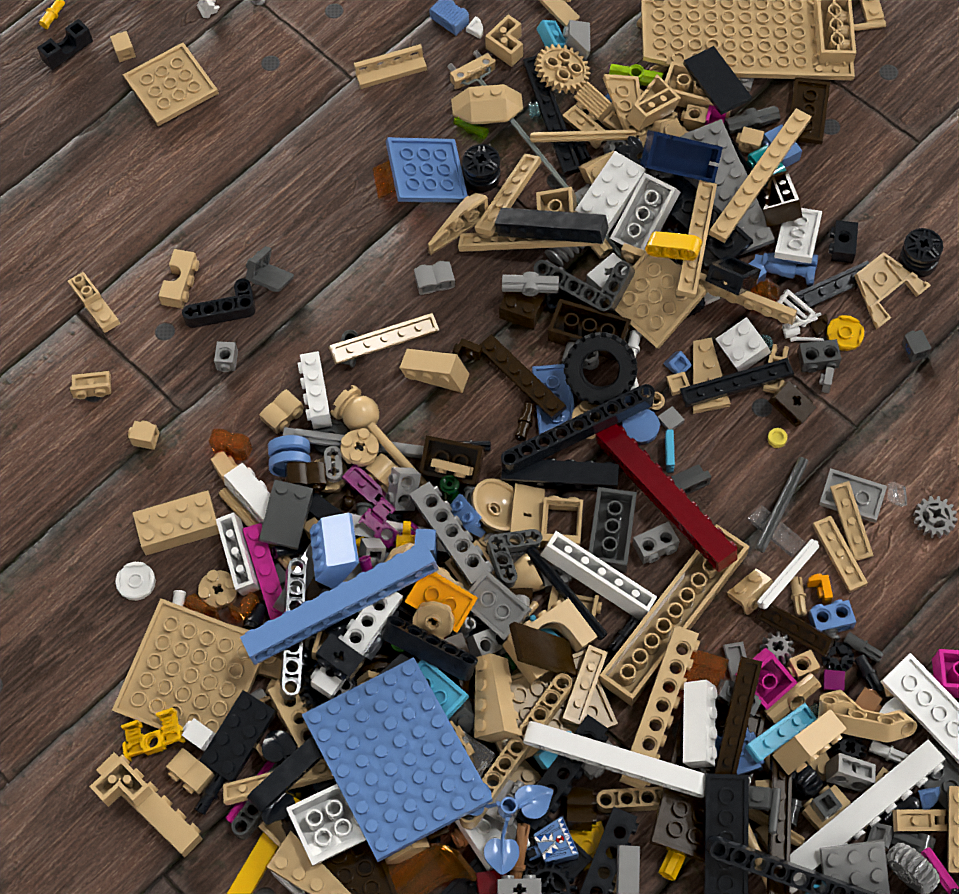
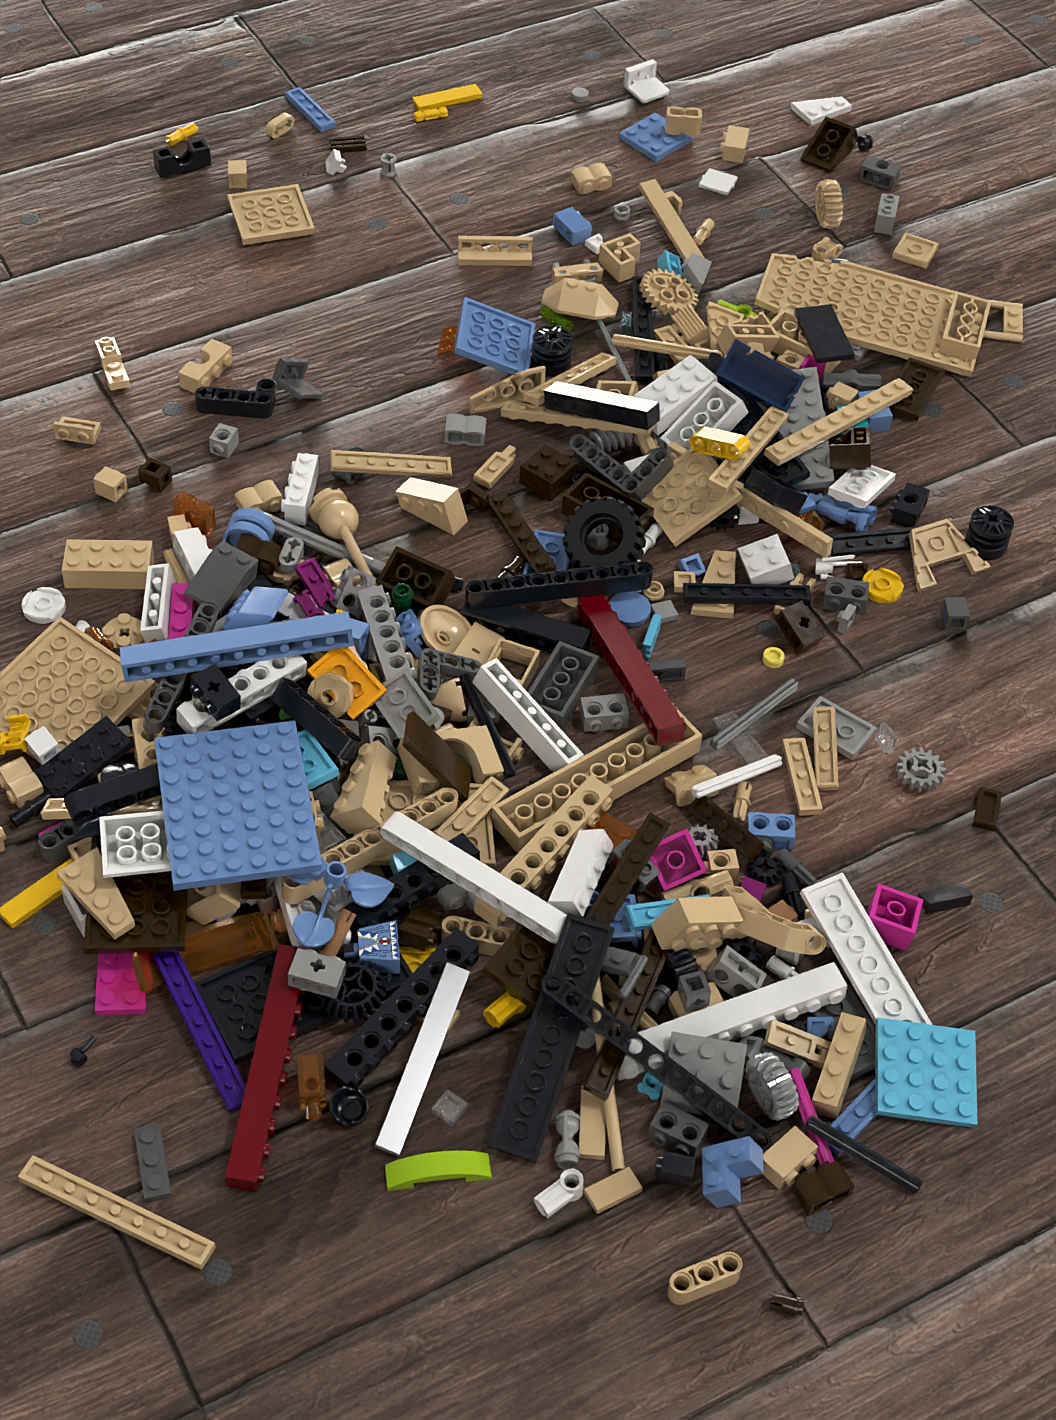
camera: 10 degrees right, 15 degrees down
(176, 407) = (155, 474): none -> dark brown brick
(359, 437) = (314, 541): tan plate -> none
(458, 469) = (411, 578): tan plate -> none
(474, 310) = (495, 467): none -> tan hinge
(530, 283) = (559, 449): light grey piece -> none
(783, 299) = (842, 544): white tile -> none
(824, 590) = (769, 795): light orange bracket -> none

